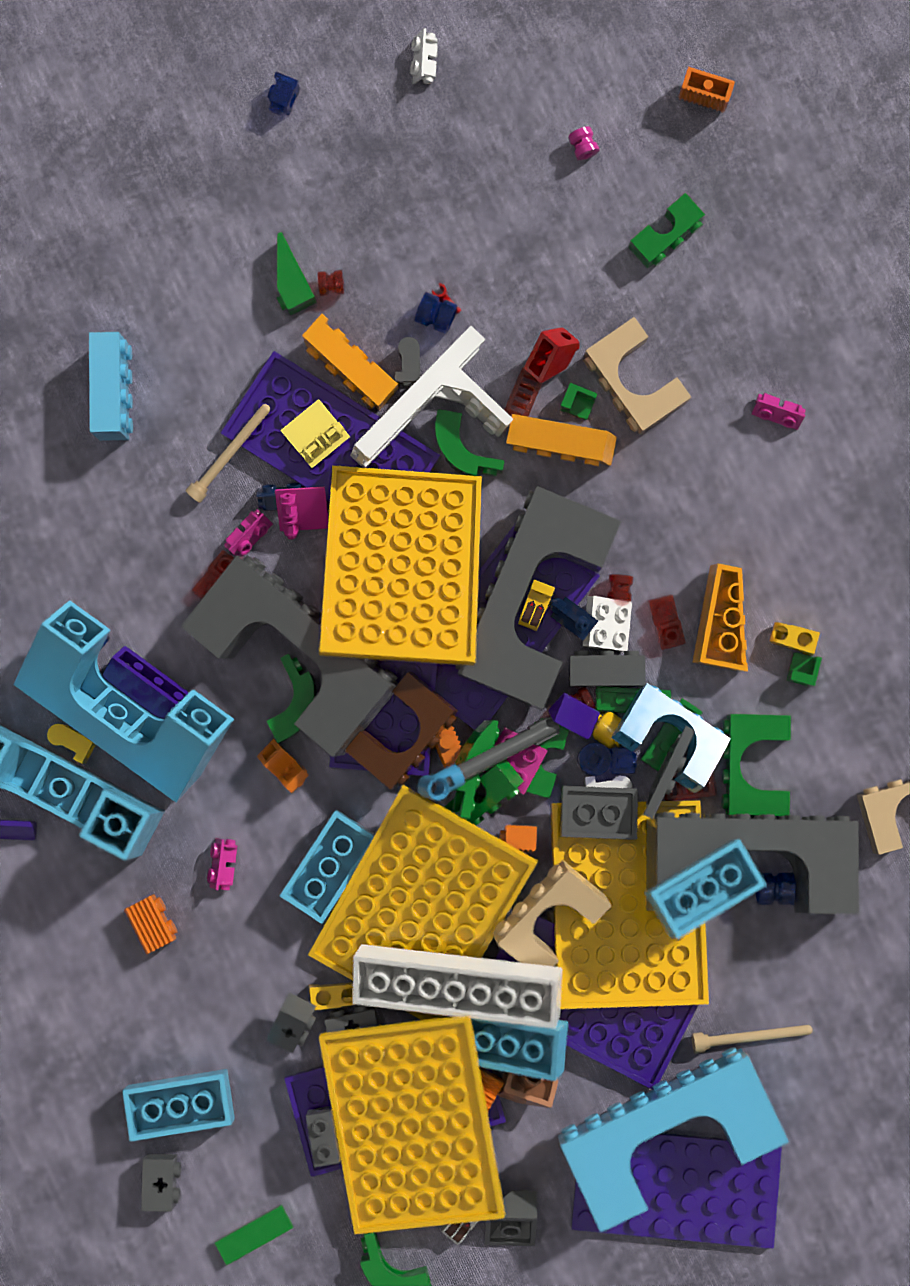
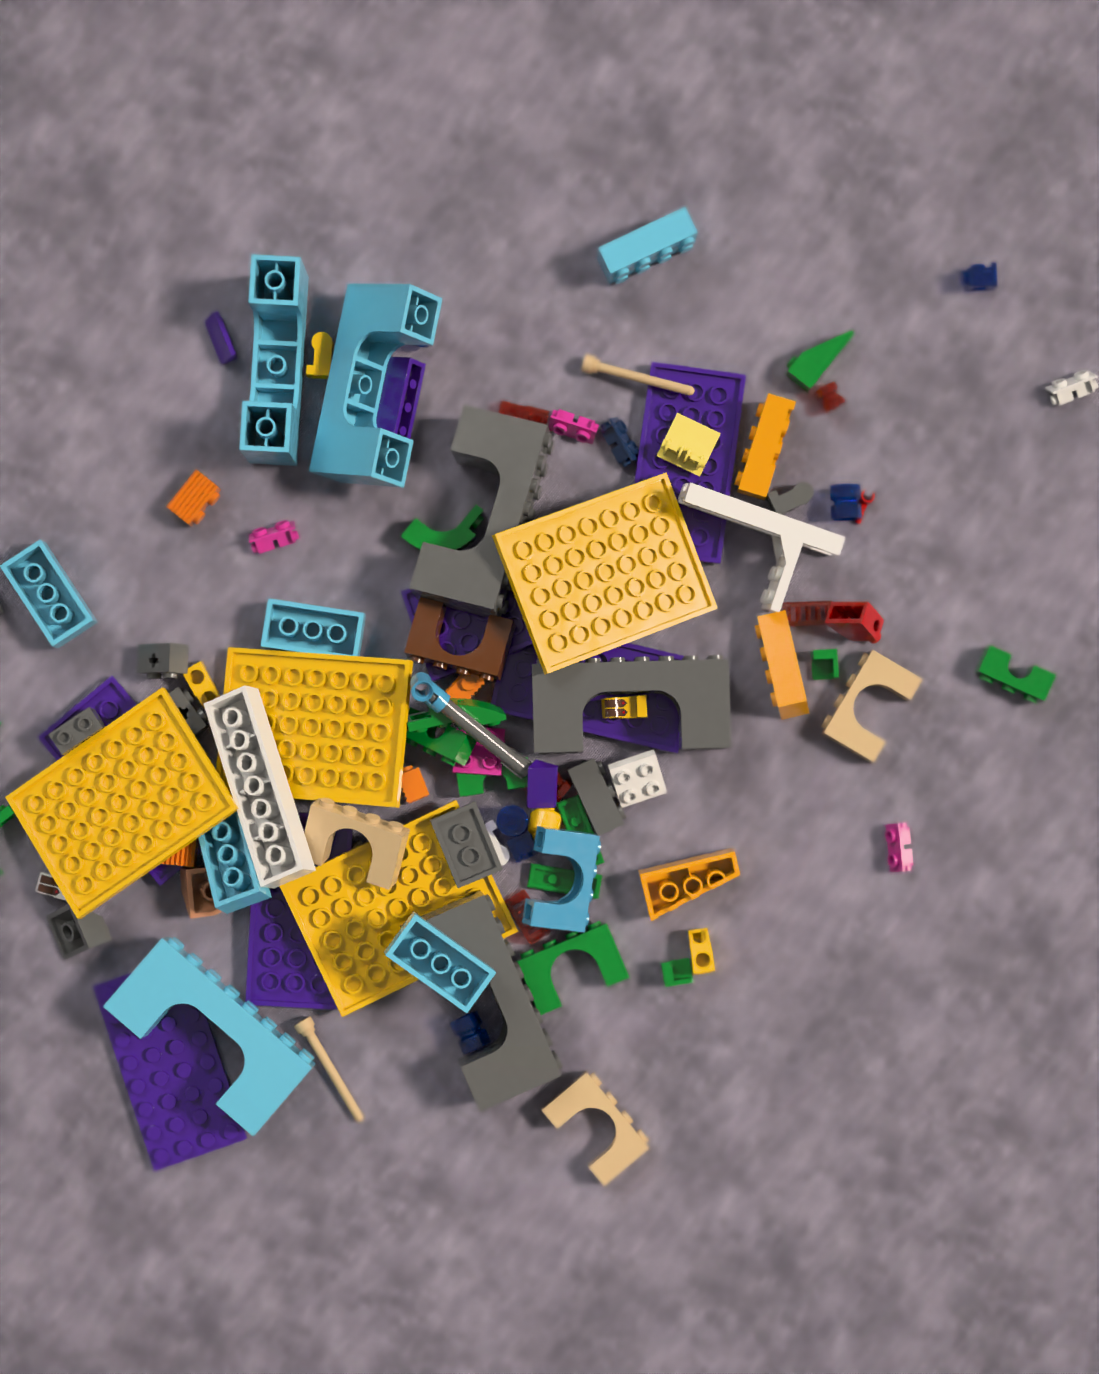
camera: 60 degrees right, 0 degrees up
(283, 765) = (383, 550): orange brick -> none
(301, 510) = (615, 463): dark pink hinge -> none
(453, 451) = (739, 563): green arch -> none
(572, 617) = (628, 744): dark blue hinge -> none
(583, 143) = (1060, 564): dark pink wheel -> none
(620, 587) = (669, 776): clear red wheel -> none
(666, 621) = (664, 831): clear red slope -> none
(672, 763) = (517, 890): dark grey wing -> none

